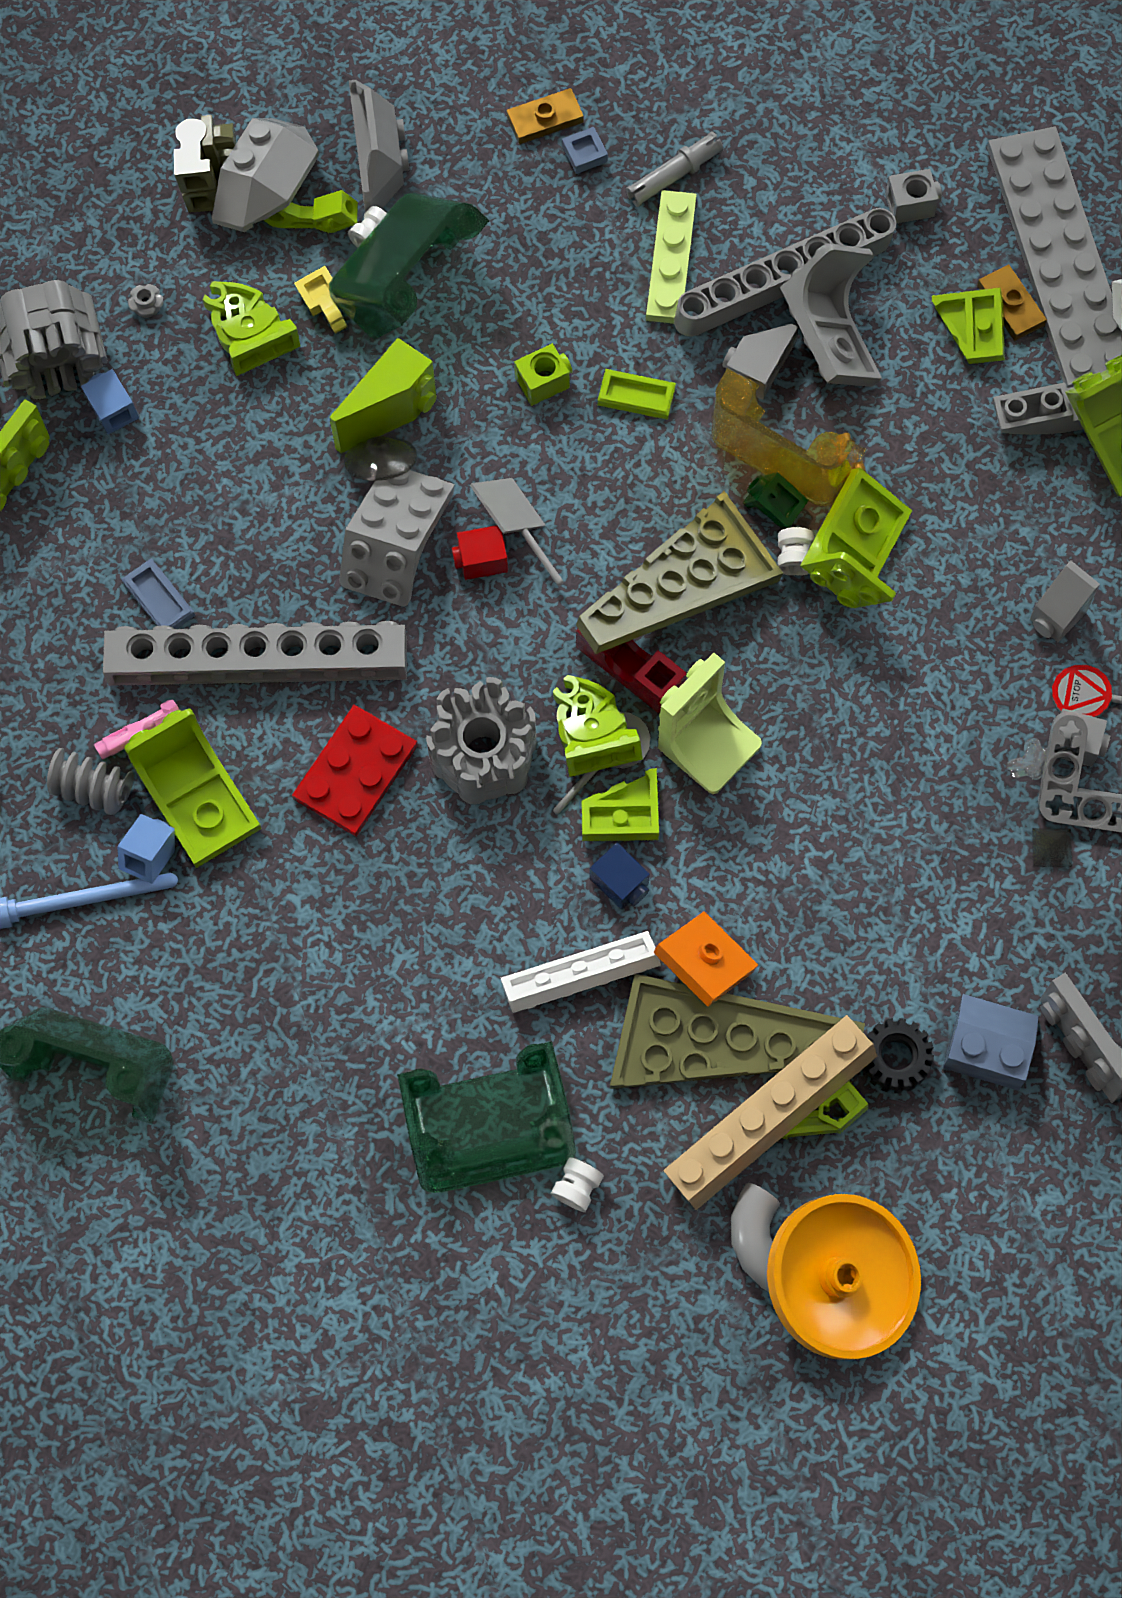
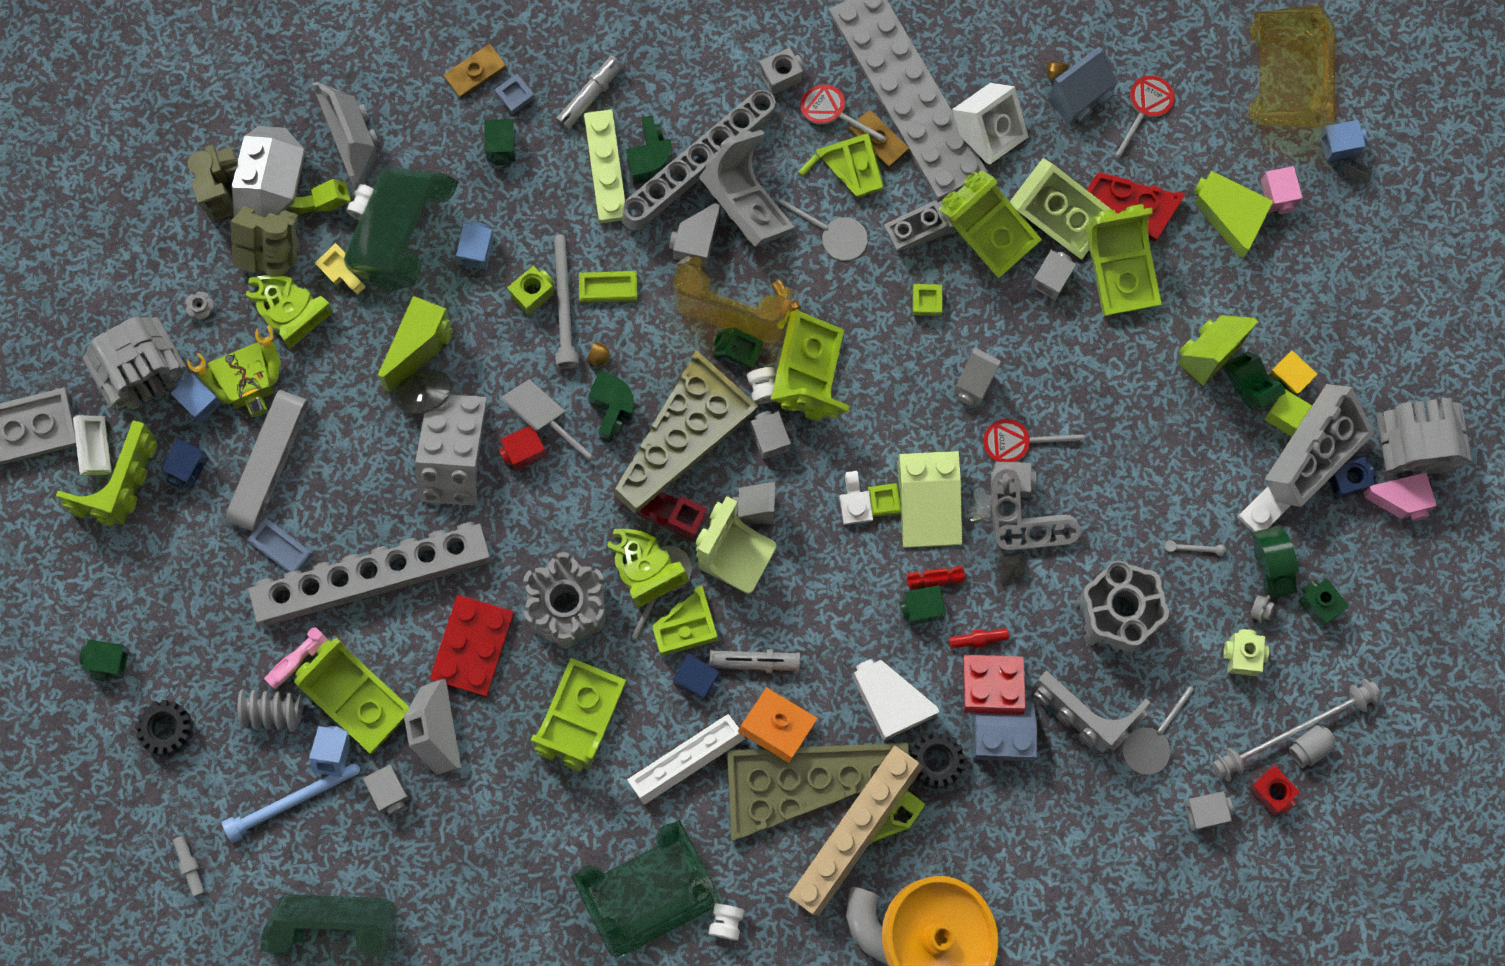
camera: 20 degrees left, 5 degrees up
(73, 473) = (184, 464): none -> dark blue brick
(171, 493) = (267, 460): none -> light grey beam
(173, 388) = (243, 375): none -> lime torso
(201, 913) = (386, 790): none -> light grey brick
(241, 241) = (264, 242): none -> olive hips
(278, 854) = (432, 728): none -> light grey slope
(461, 885) = (578, 715): none -> lime bracket
(489, 308) = (475, 245): none -> medium blue brick
(552, 197) = (500, 141): none -> dark green brick
(565, 460) = (566, 355): none -> light grey piece
(603, 467) = (599, 354): none -> pearl gold hinge
(610, 523) = (615, 397): none -> dark green brick
(699, 875) = (791, 662): none -> light grey pin
(727, 254) = (651, 158): none -> dark green brick
(750, 686) = (756, 503): none -> light grey slope
(788, 610) = (770, 434): none -> light grey brick
(858, 966) = (891, 699): none -> white slope
(871, 720) = (855, 504): none -> white plate
(910, 724) = (884, 500): none -> lime tile
(918, 313) = (808, 165): none -> lime piece
(926, 861) = (922, 605): none -> dark green brick
(936, 406) = (841, 238): none -> light grey piece
(951, 833) = (935, 577): none -> red axle
(957, 248) = (826, 104): none -> piece
(968, 735) = (930, 499): none -> yellowish green slope
(987, 920) = (978, 638): none -> red bar
(992, 980) = (993, 684): none -> plate
(1024, 500) = (927, 299): none -> lime plate

